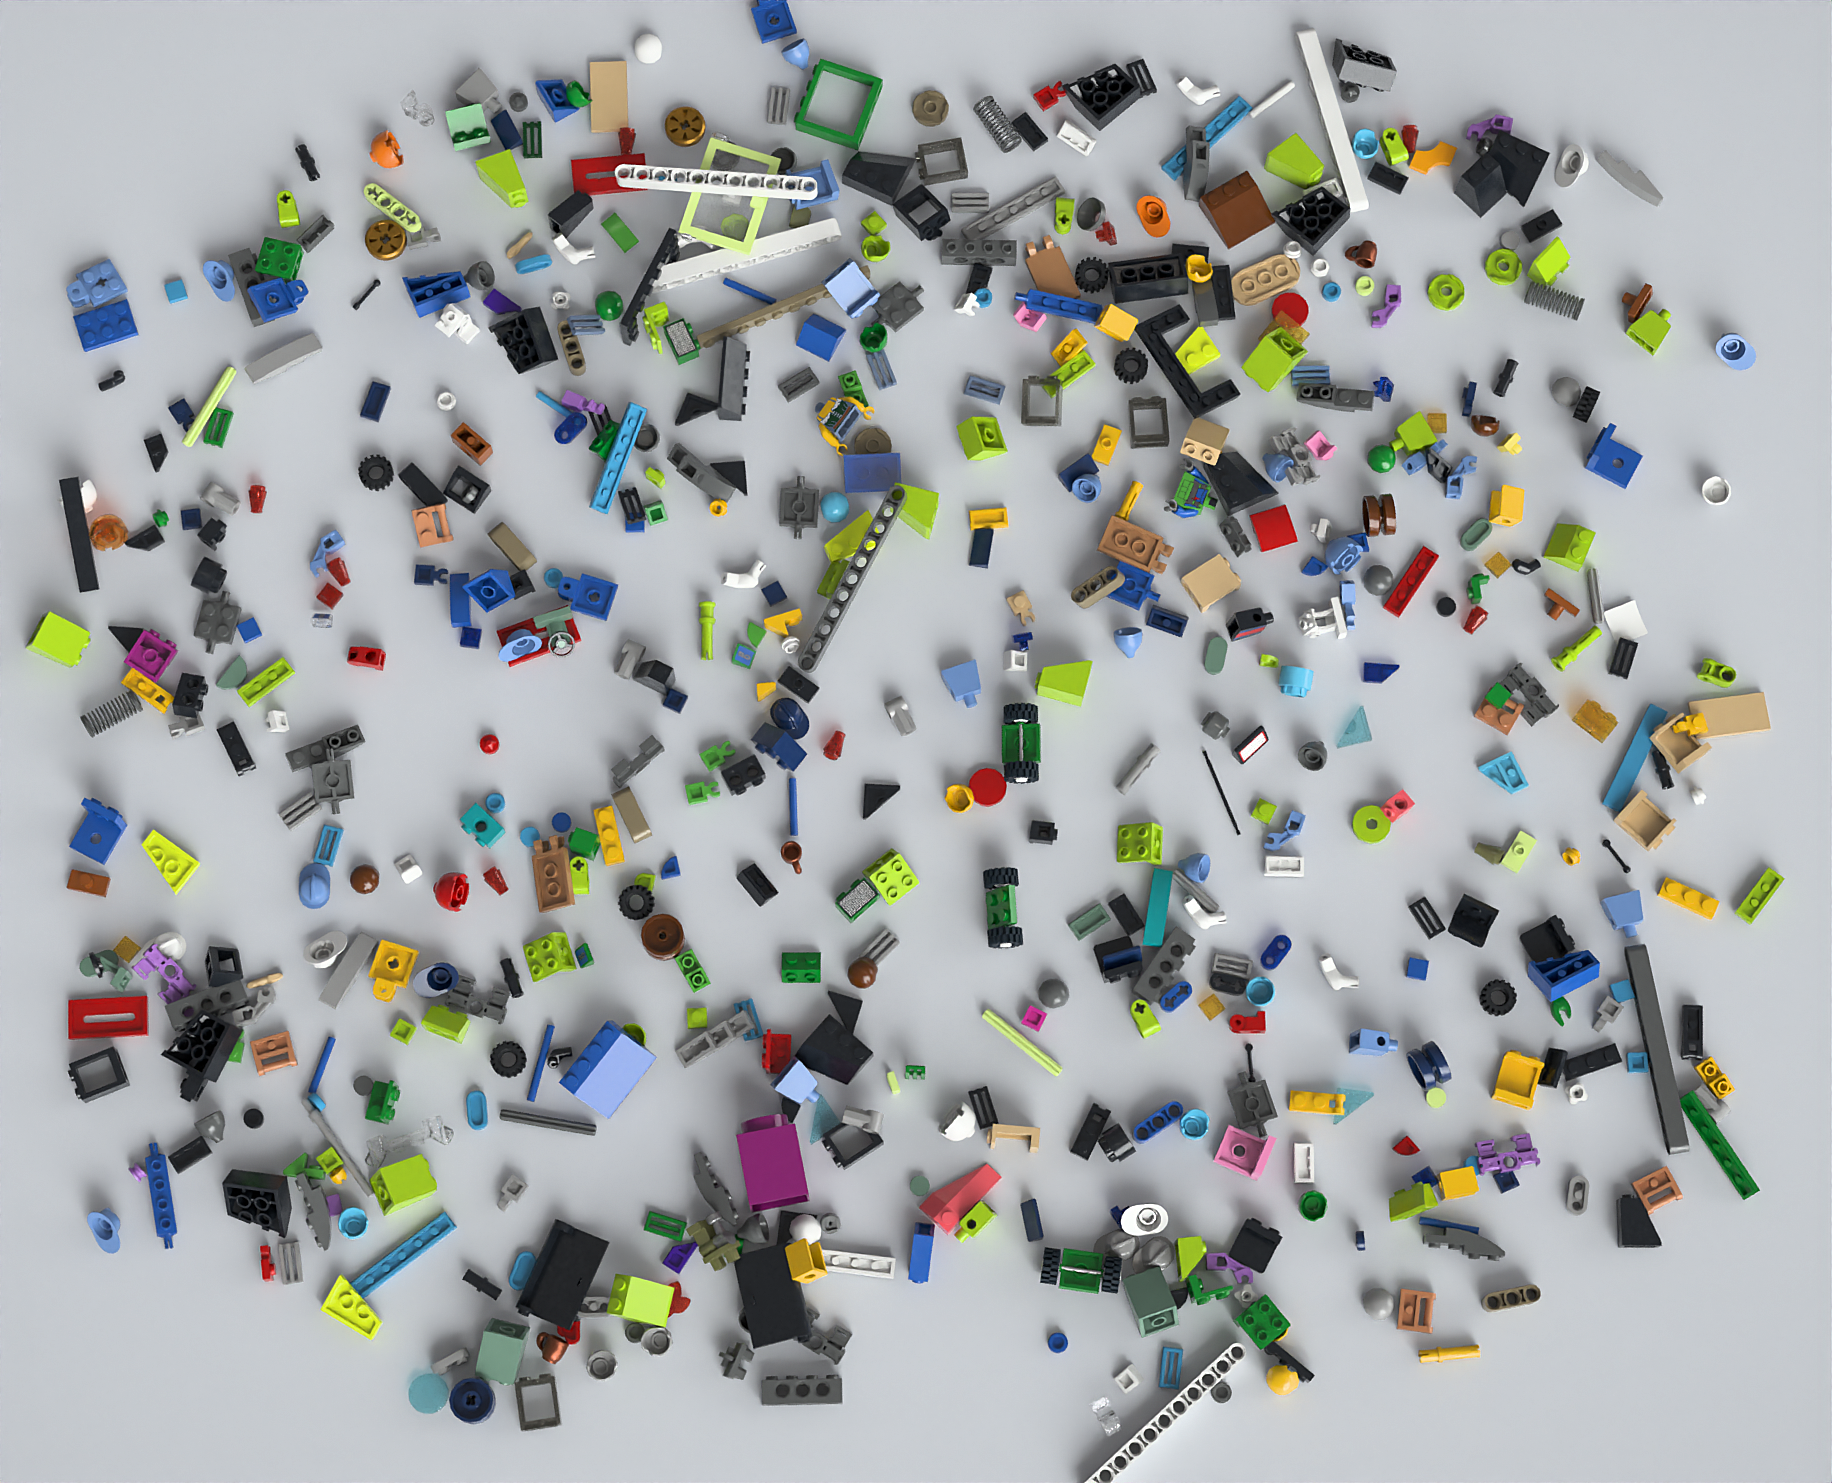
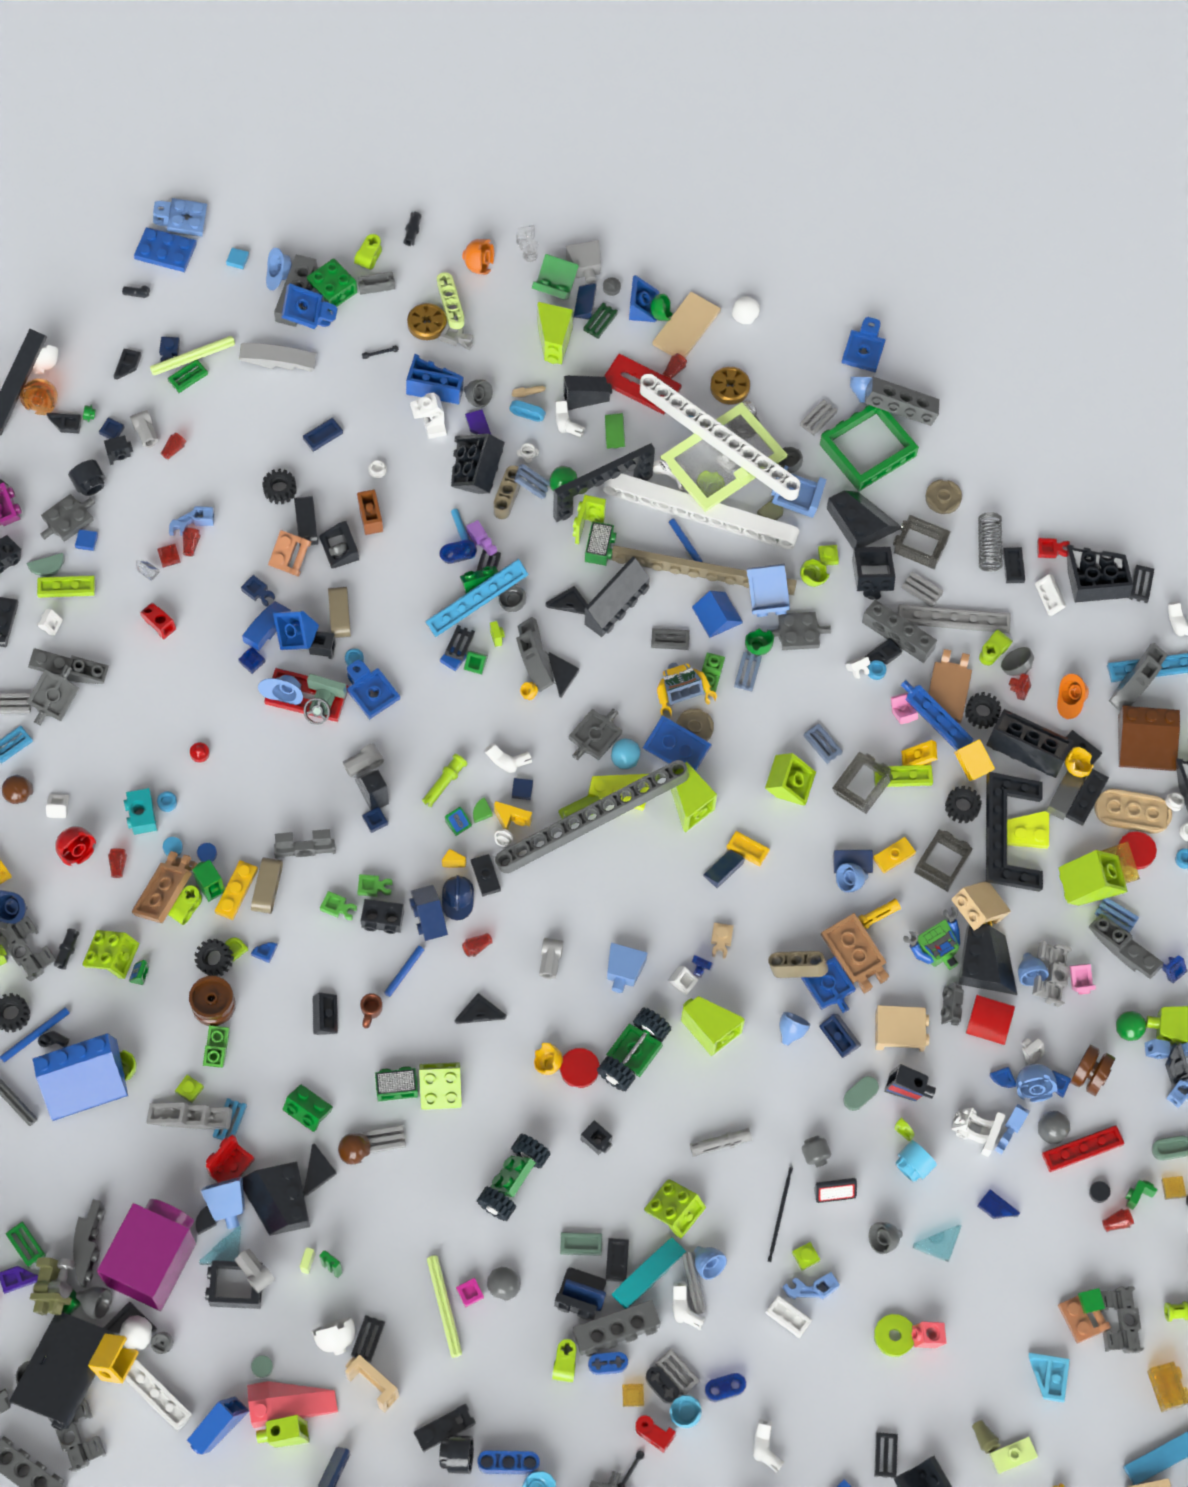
camera: 35 degrees right, 10 degrees down
(840, 47) = (902, 401): none -> dark grey brick

